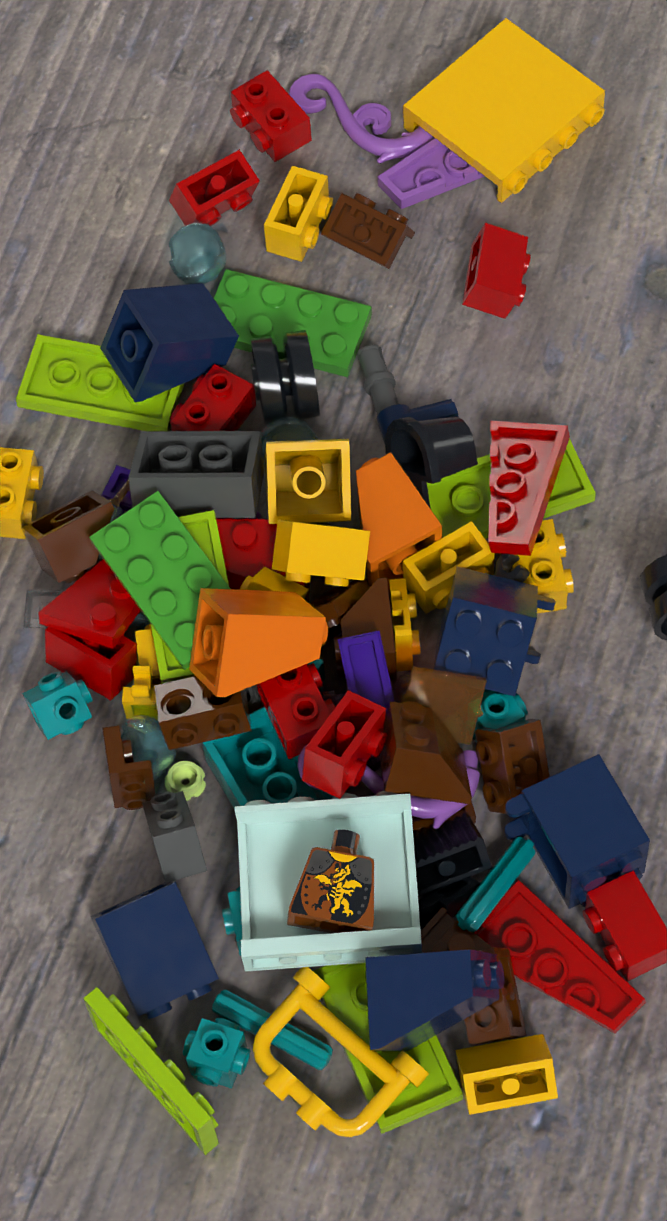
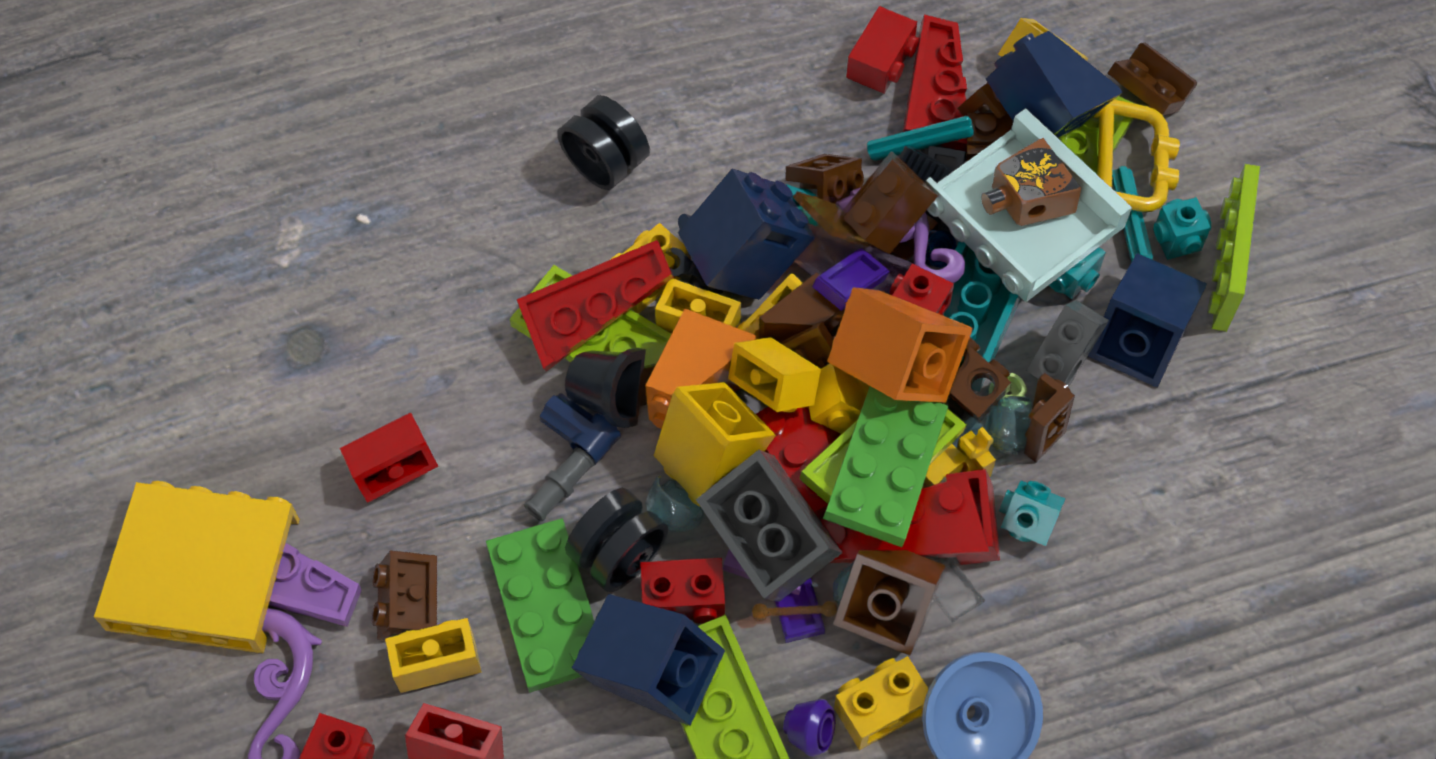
camera: 130 degrees left, 0 degrees up
(31, 428) = (811, 726): none -> dark purple cone
(197, 253) = (533, 714): clear light blue hair -> none
(344, 745) = (928, 236): red brick -> none
(400, 1165) = (1154, 79): none -> reddish brown bracket
(580, 829) = (842, 103): dark blue container -> none

